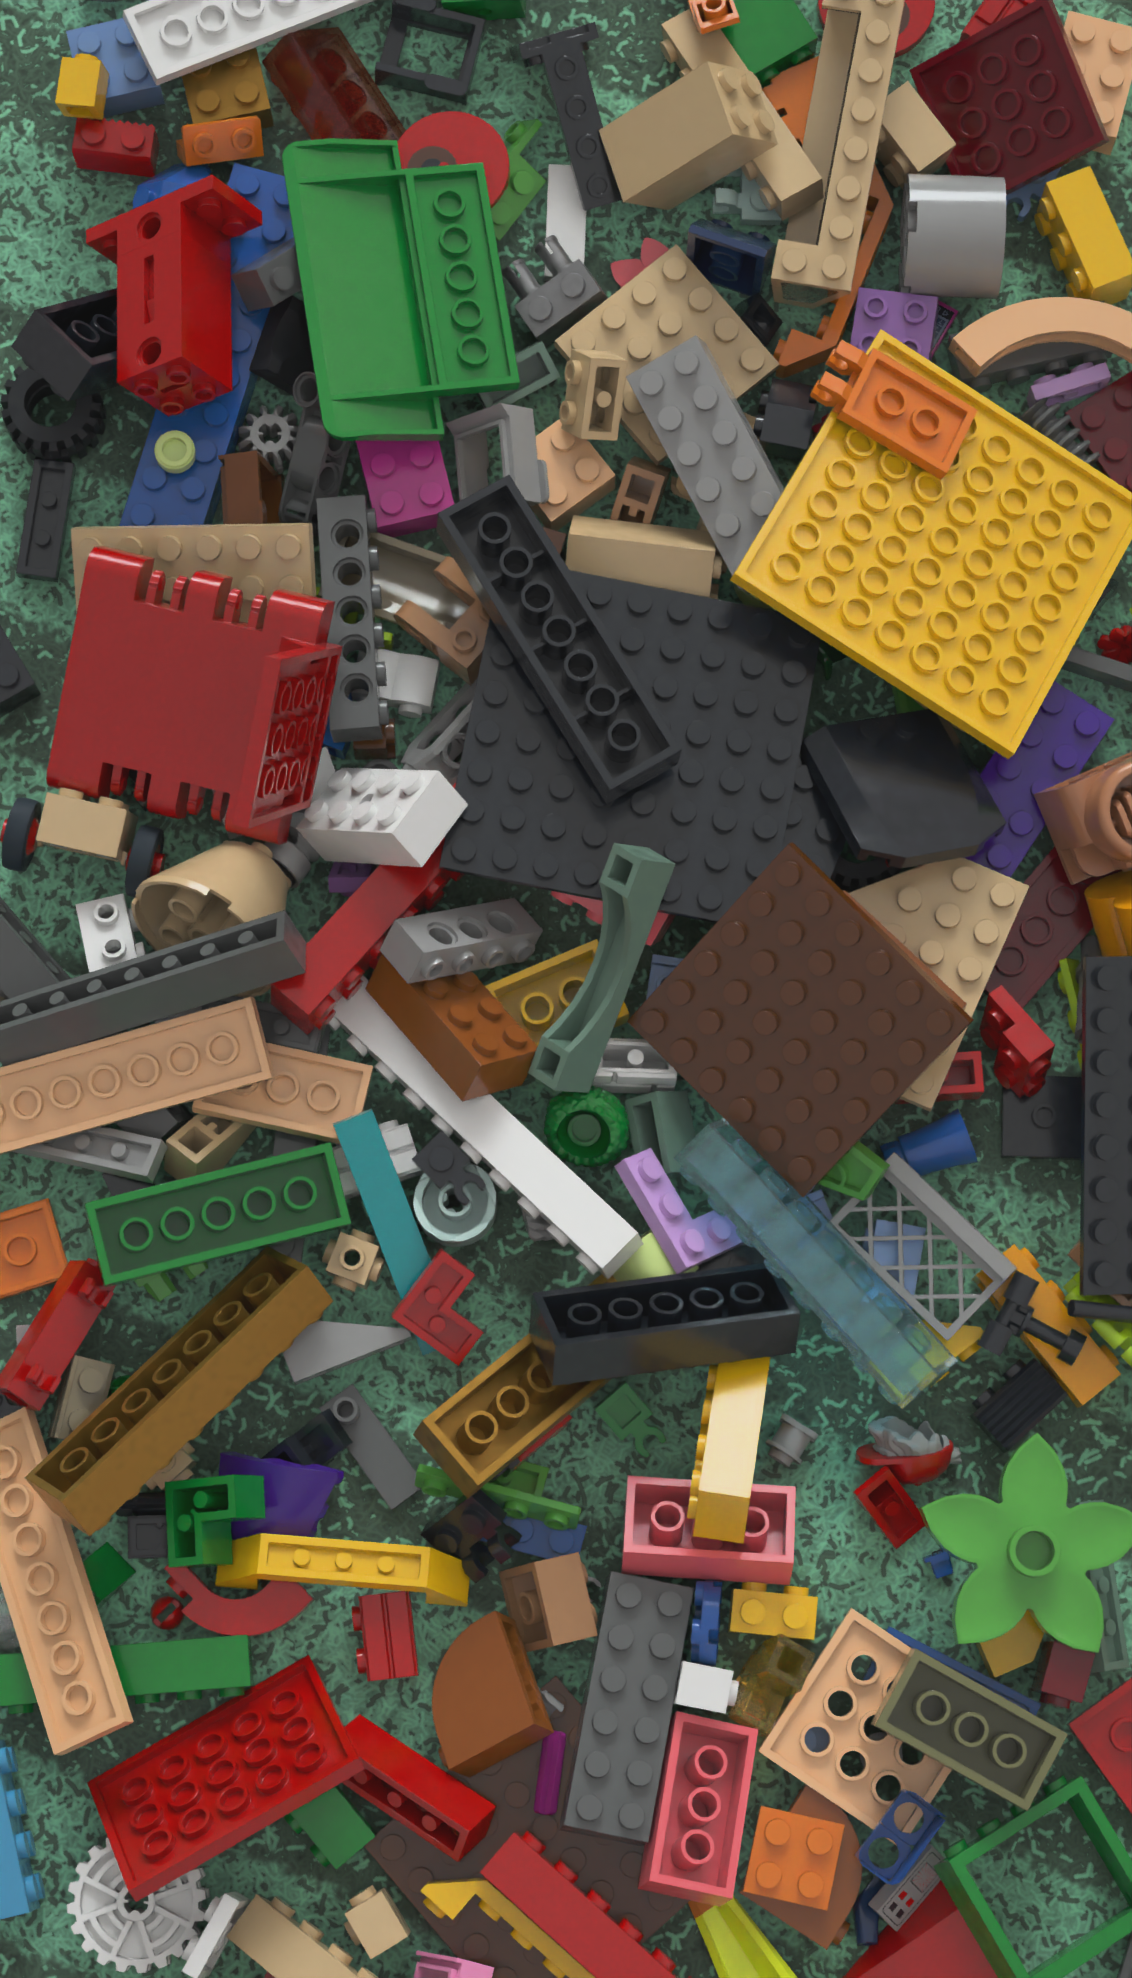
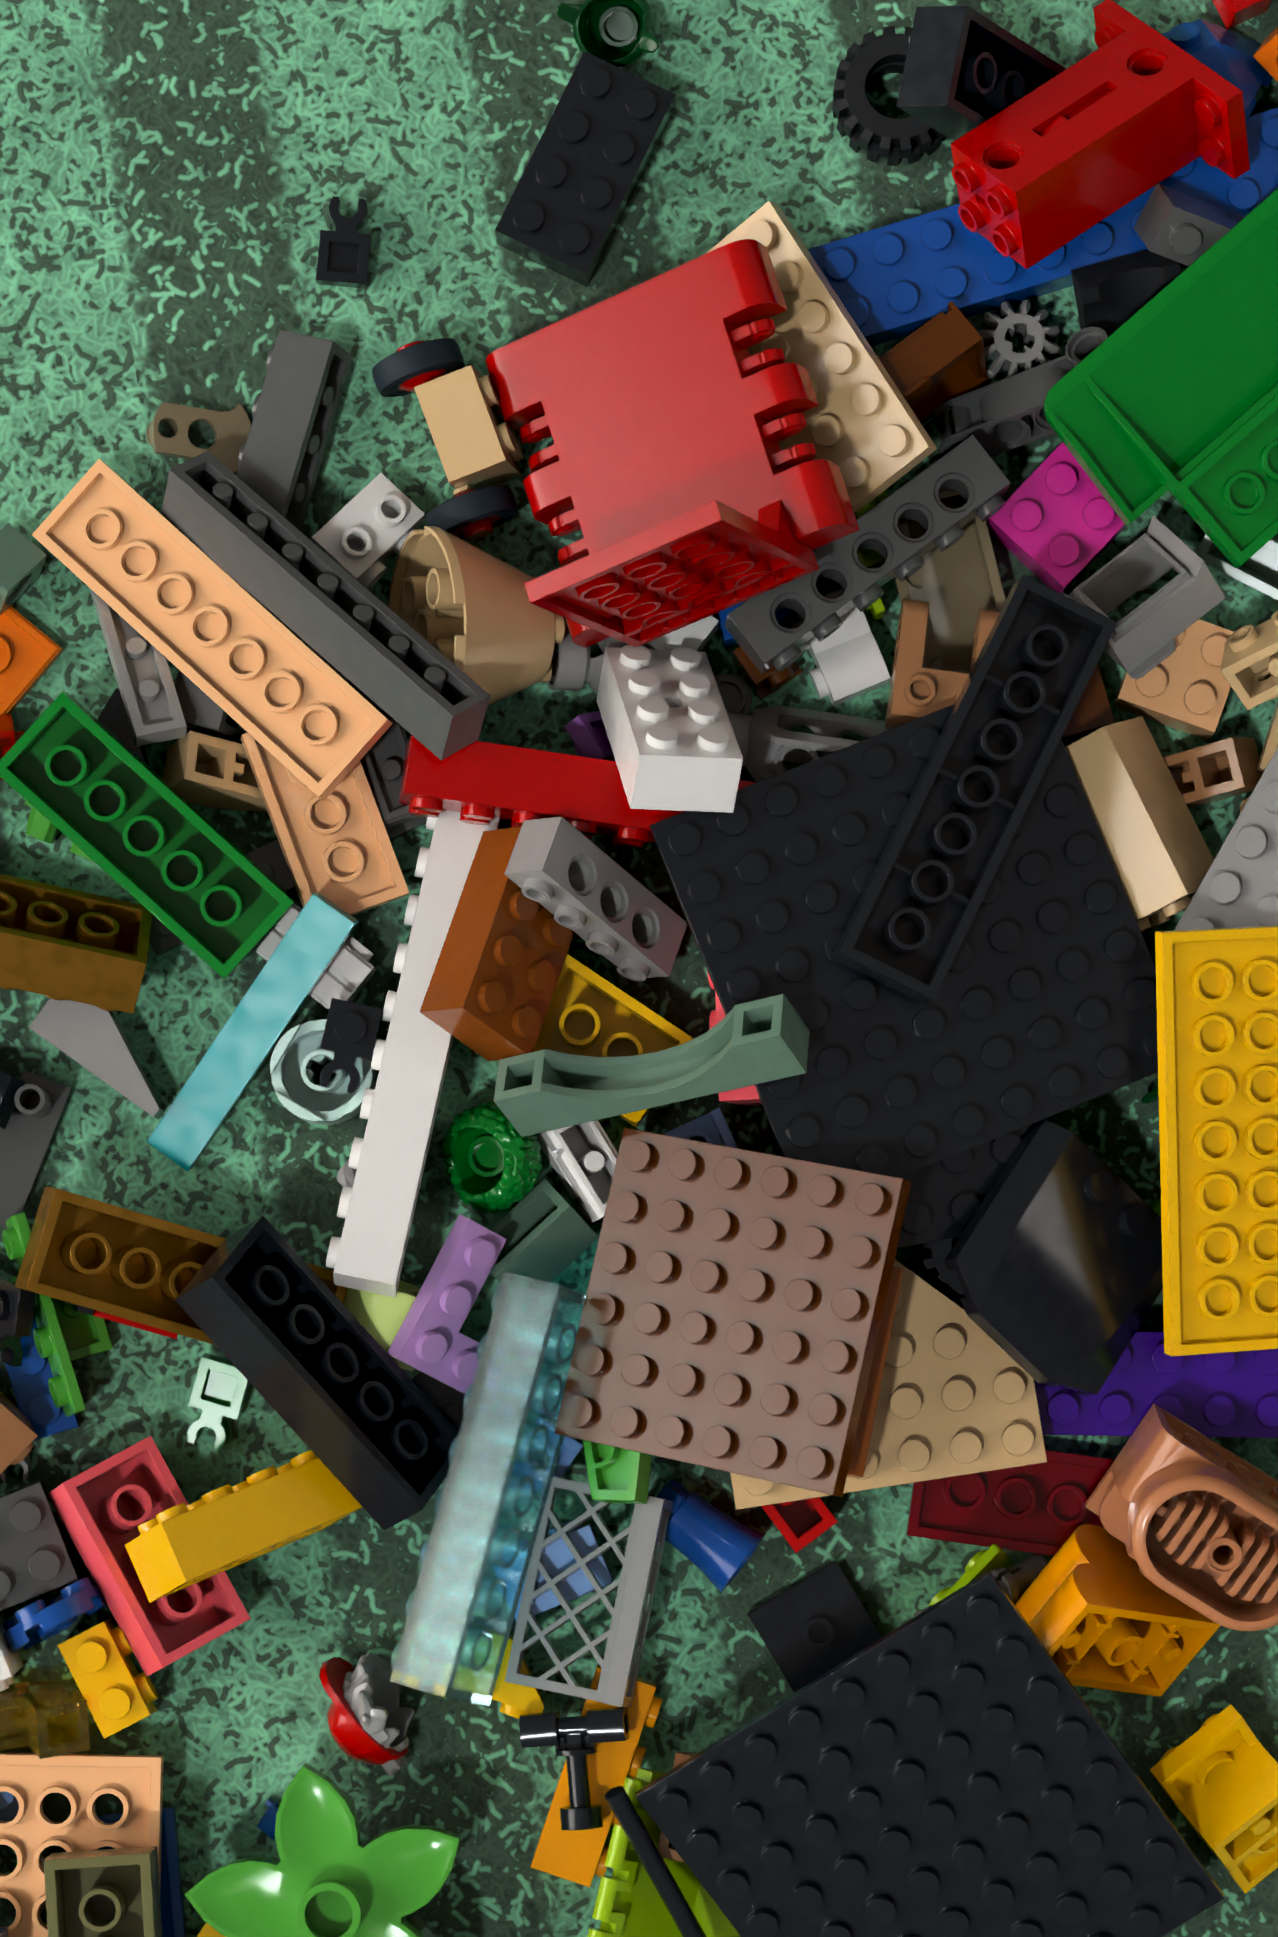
camera: 60 degrees right, 5 degrees up
(46, 520) = (774, 167): black plate -> none
(175, 451) = (928, 253): yellowish green tile -> none
(359, 1275) = (205, 1023): tan brick -> none
(429, 1310) = (189, 1120): red plate -> none
(790, 1441) = (299, 1581): light grey brick -> none
(889, 1507) = (295, 1729): red slope -> none
(1018, 1404) = (491, 1796): black brick -> none
(1021, 1044) = (865, 1567): red plate -> none

